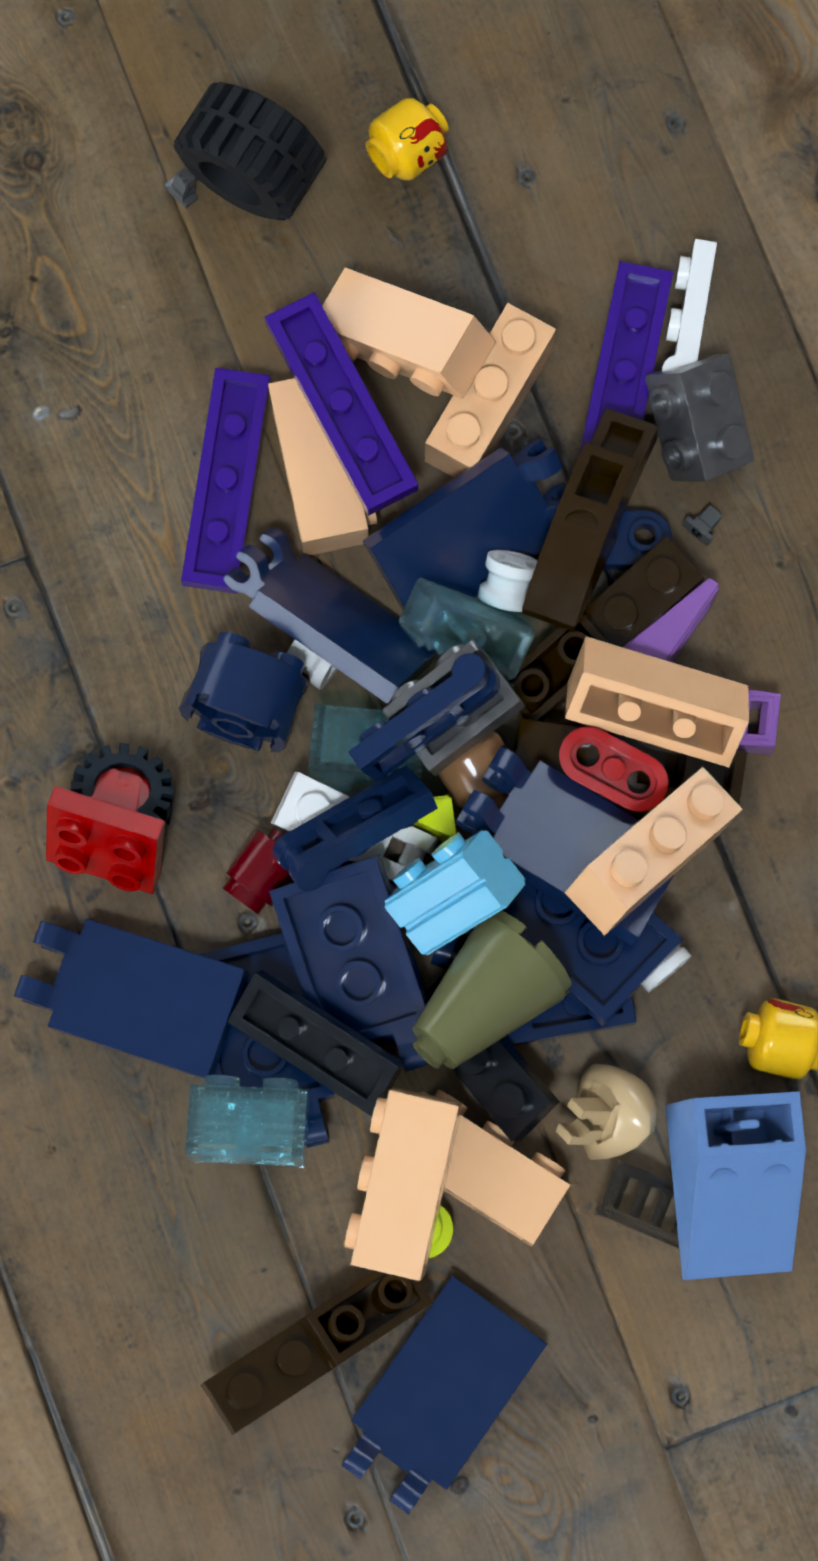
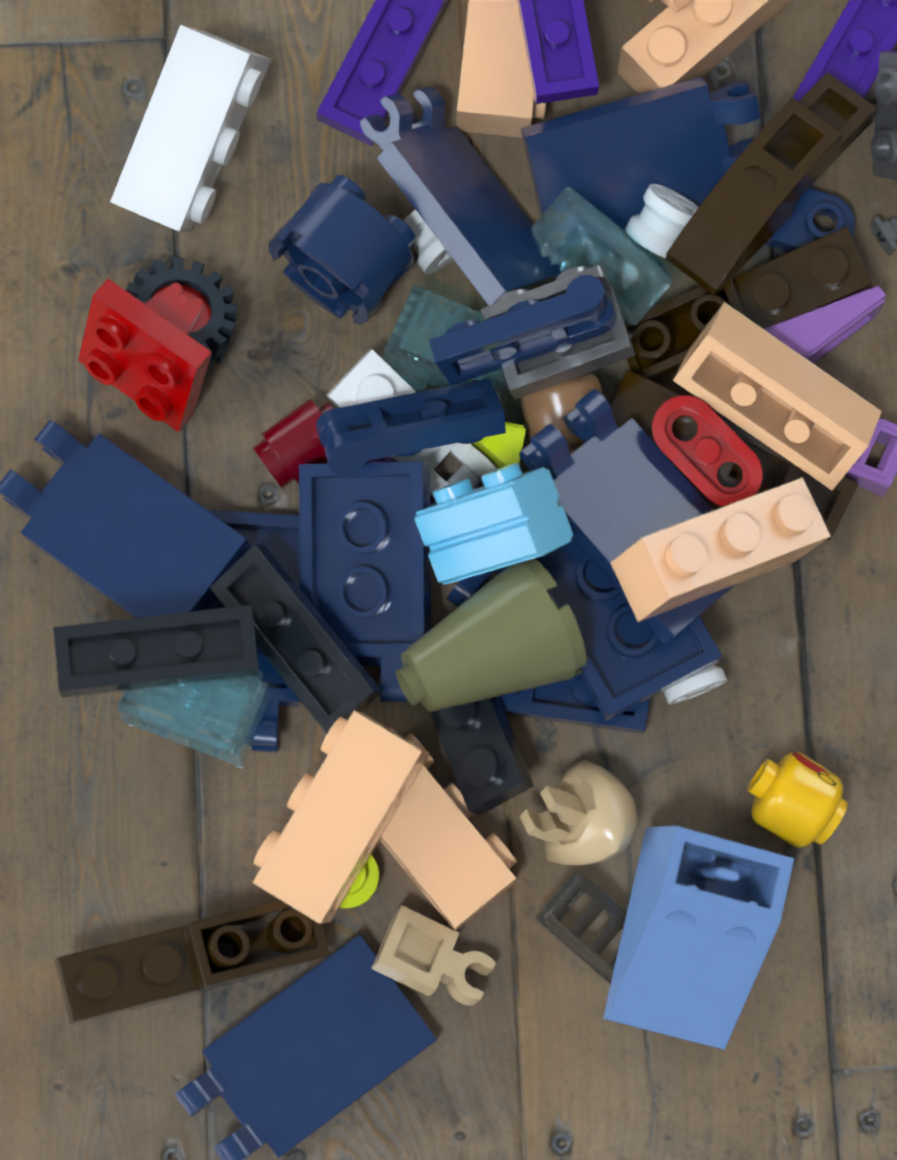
camera: 15 degrees right, 0 degrees up
(78, 630) = (189, 129): none -> white wedge
(203, 1094) = (156, 651): none -> black plate
(510, 1276) = (422, 955): none -> tan plate

